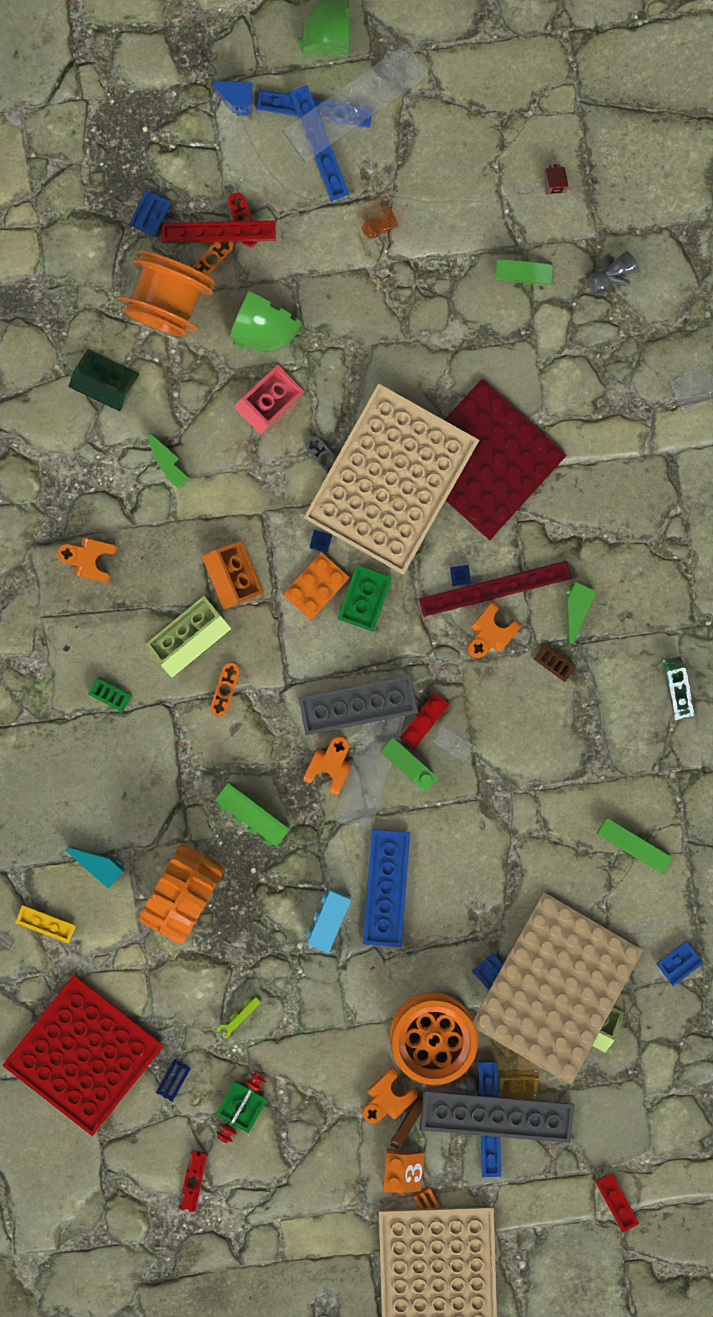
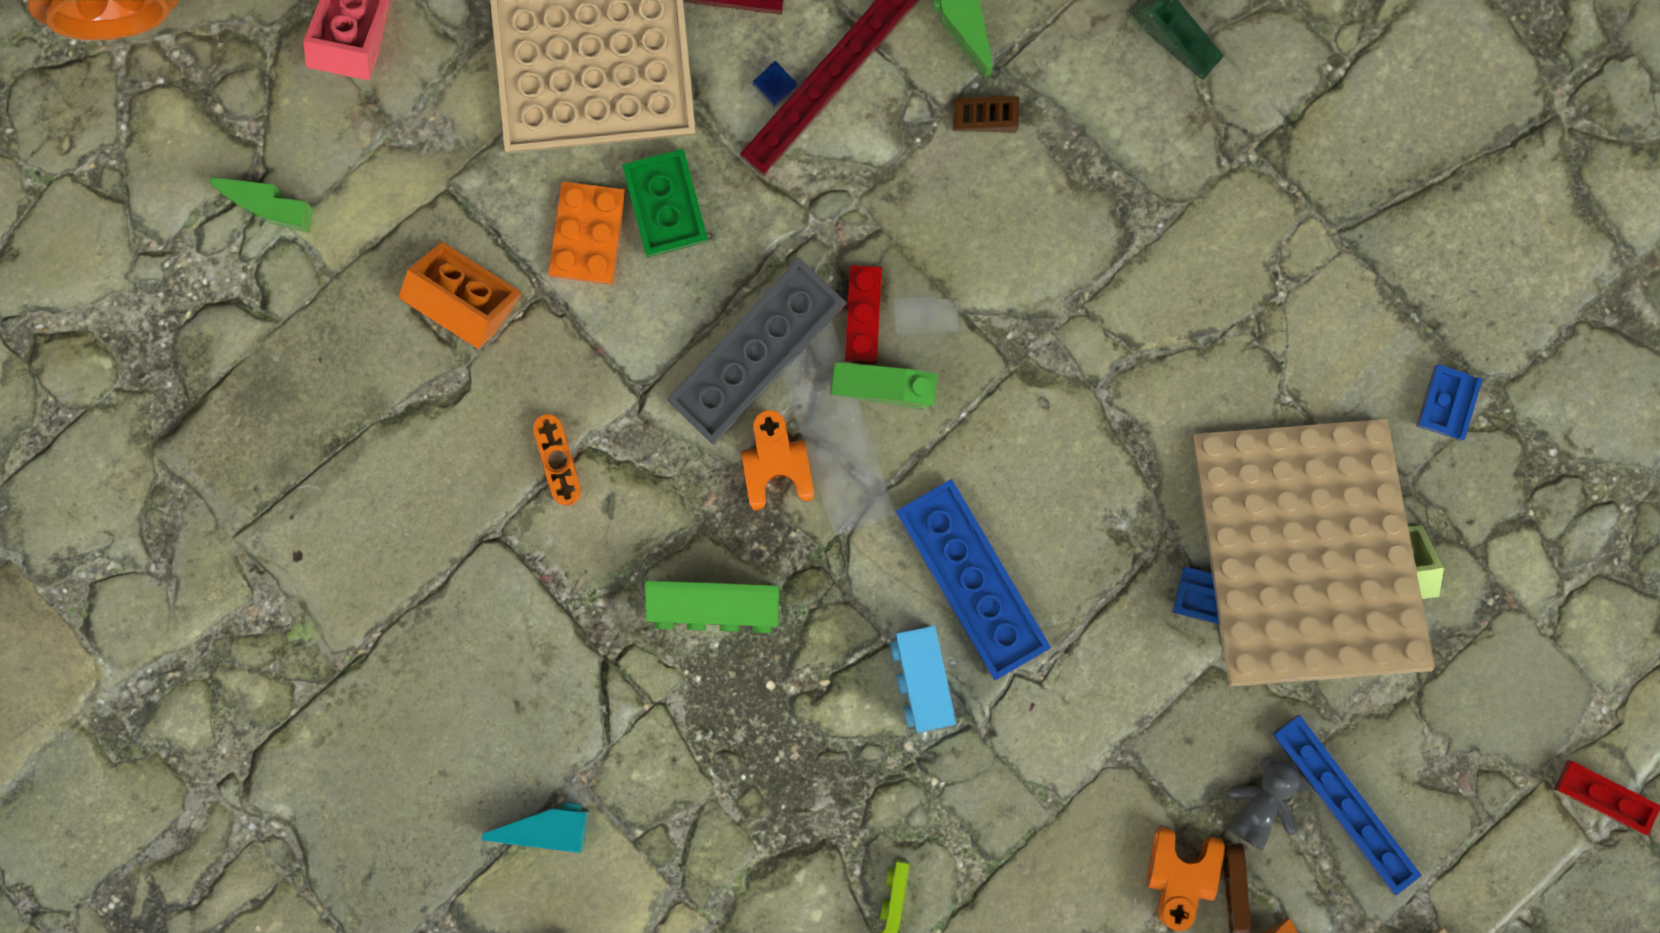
camera: 30 degrees left, 5 degrees down
(85, 558) = (238, 410): orange piece -> none
(92, 692) = (371, 584): green slope -> none
(103, 380) = (101, 154): clear green slope -> none
(181, 893) = (685, 785): orange wheel -> none
(188, 636) = (456, 421): yellowish green slope -> none
(320, 445) = (459, 56): dark grey beam -> none
(320, 541) = (551, 167): clear blue plate -> none
(407, 1021) = (1245, 743): orange wheel -> none
(489, 634) = (870, 133): orange piece -> none
(496, 1116) = (1355, 794): dark grey plate -> none
(518, 1084) = (1352, 727): clear yellow slope -> none
(634, 845) = (1270, 283): bright green slope -> none

